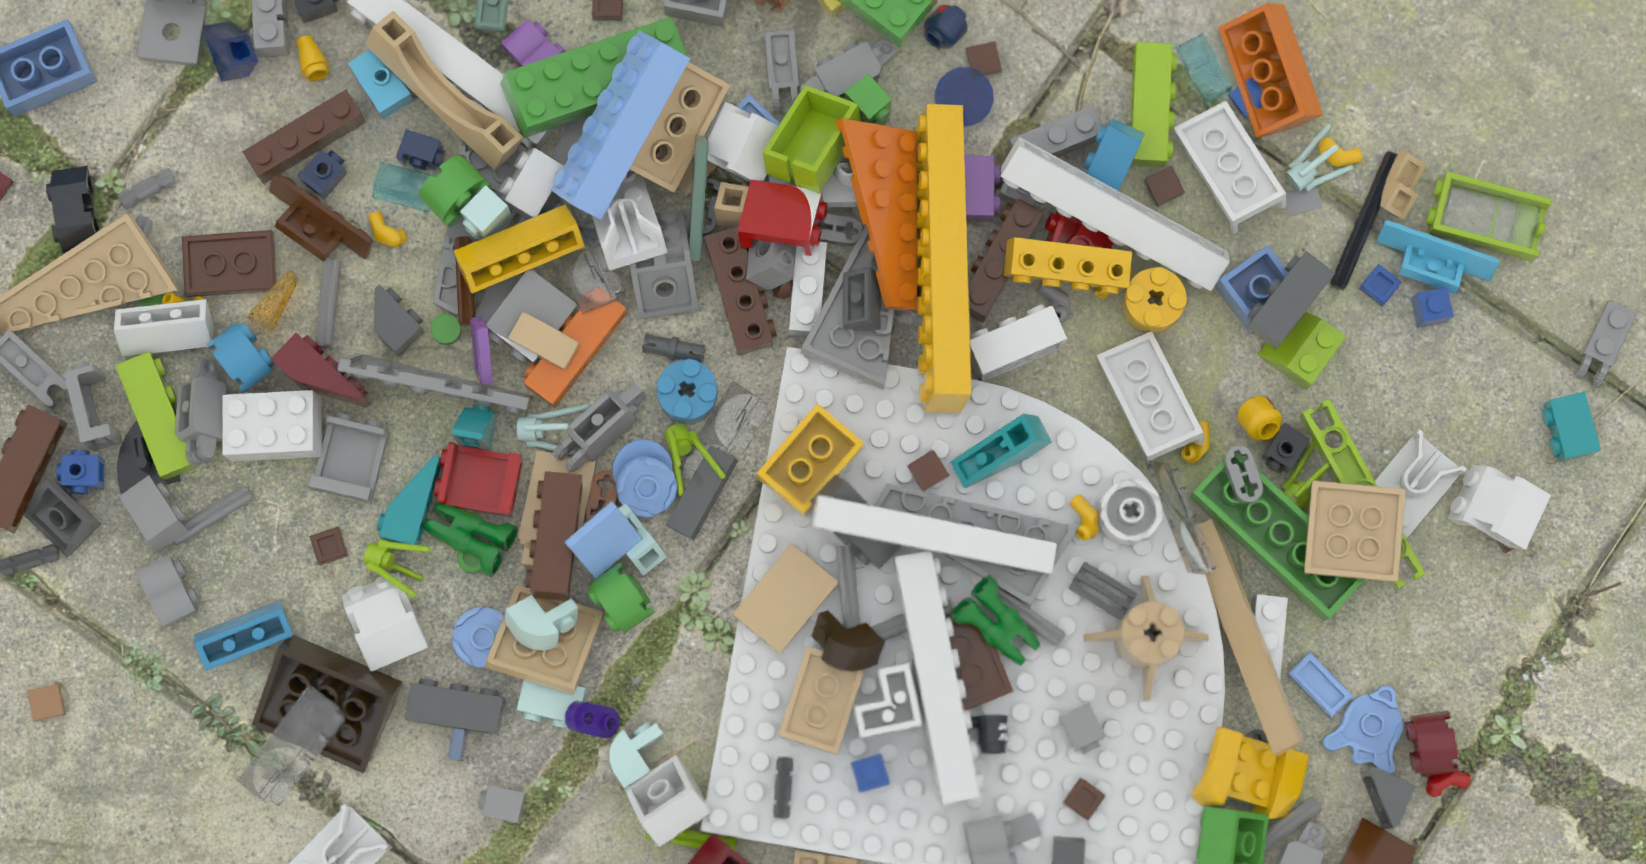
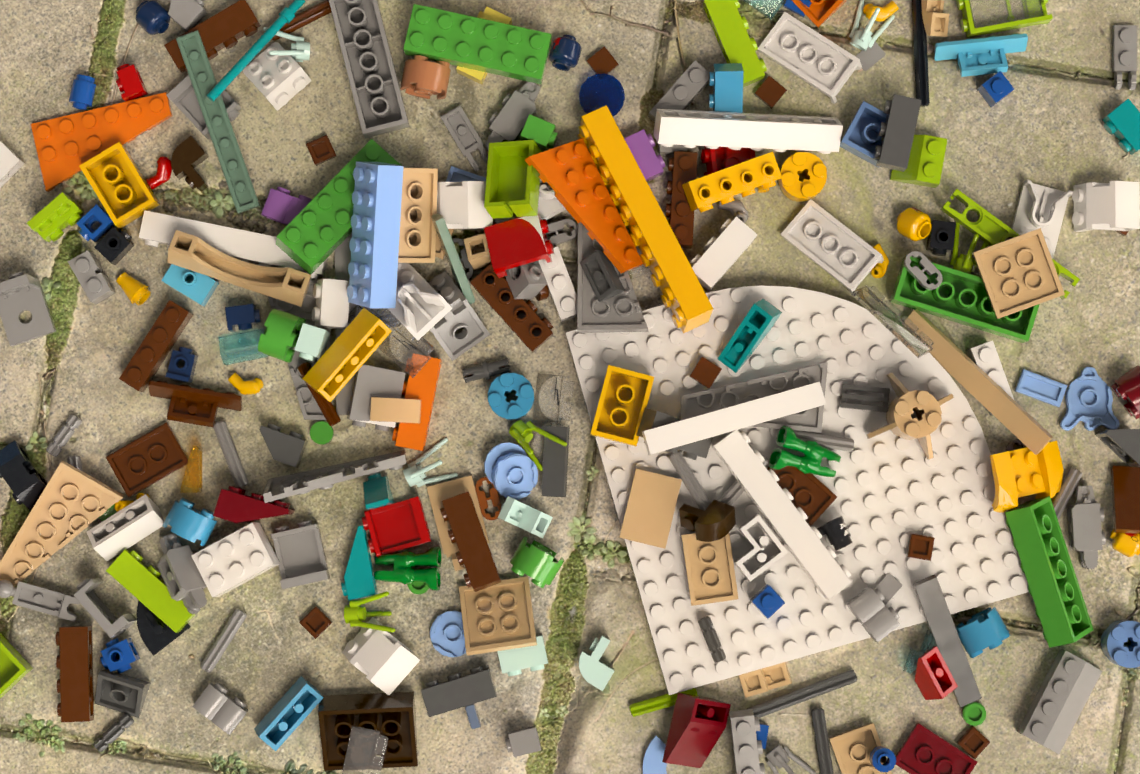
camera: 25 degrees left, 5 degrees up
(153, 513) = (184, 659): light grey brick -> none
(230, 50) = (73, 310): clear blue slope -> none
(481, 350) = (355, 437): medium lavender tile -> none
(535, 627) = (489, 612): light aqua brick -> none
(592, 719) = (557, 654): dark purple plate -> none
(600, 426) = (463, 449): light grey hinge -> none
(603, 540) = (505, 529): light blue tile -> none
(667, 800) = (636, 685): white brick -> none
(1082, 728) = (896, 500): light grey brick -> none
(1089, 518) = (831, 351): yellow arm -> none
(1112, 515) = (871, 329): white brick -> none
(1380, 285) = (951, 90): blue tile -> none

